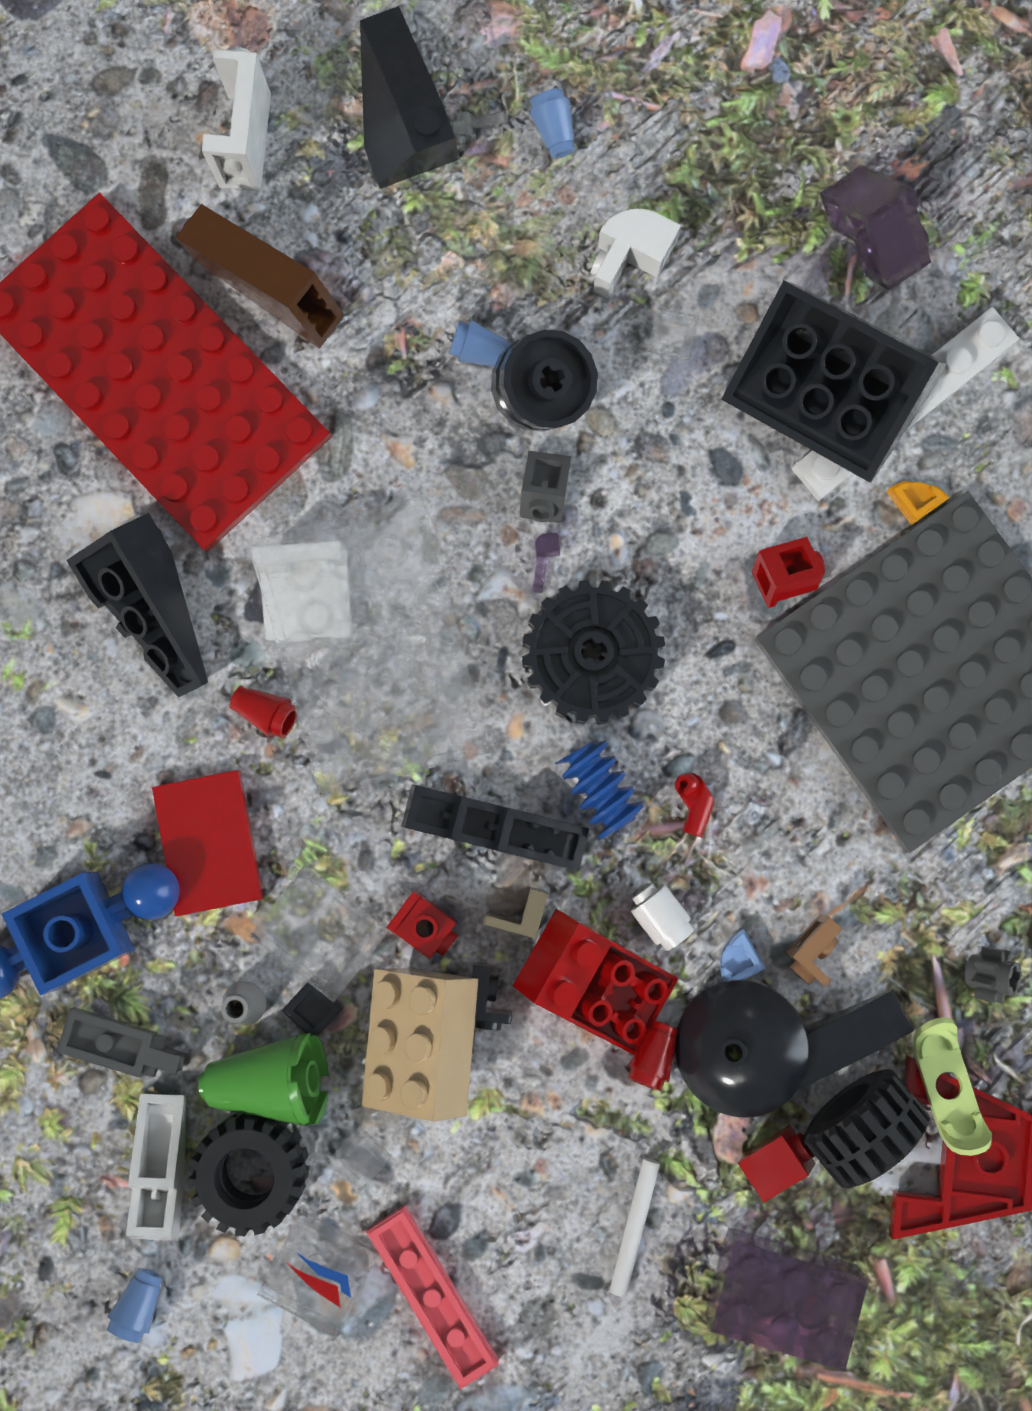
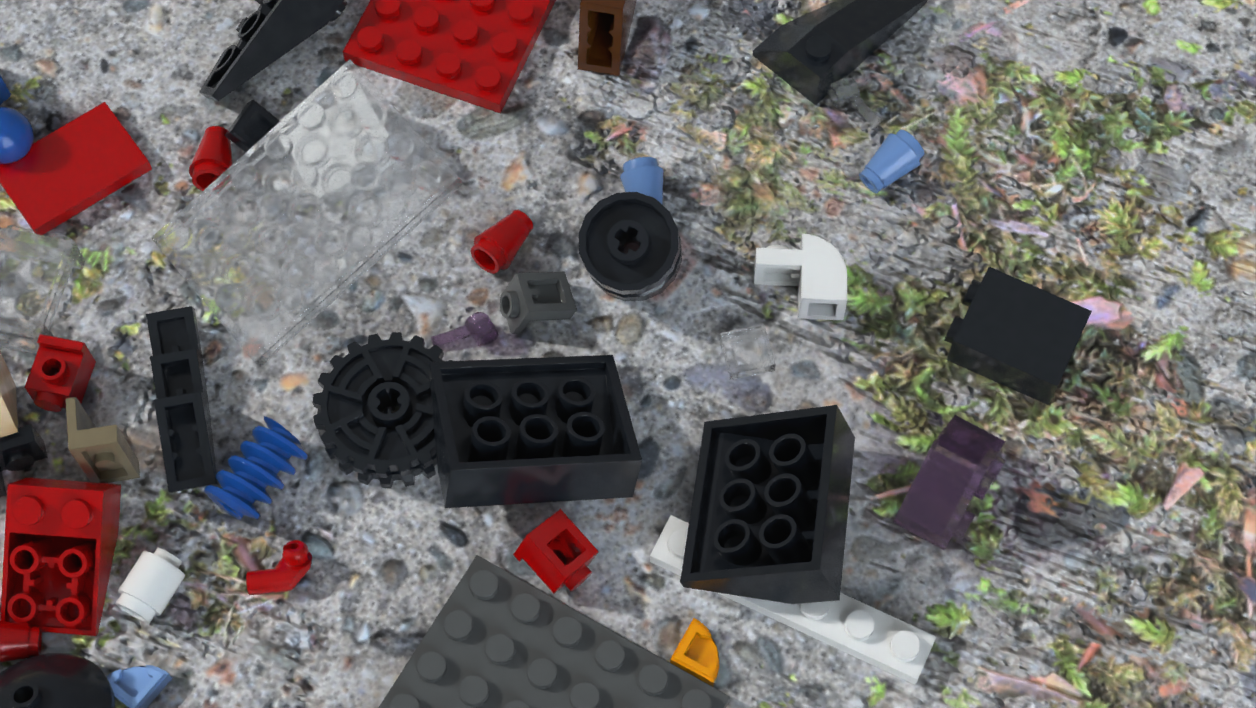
camera: 60 degrees right, 20 degrees down
(252, 661) = (251, 125): none -> black tile
(473, 491) = (501, 242): none -> red cone
(676, 541) = (532, 431): none -> black slope
(768, 104) = (1016, 334): none -> black brick

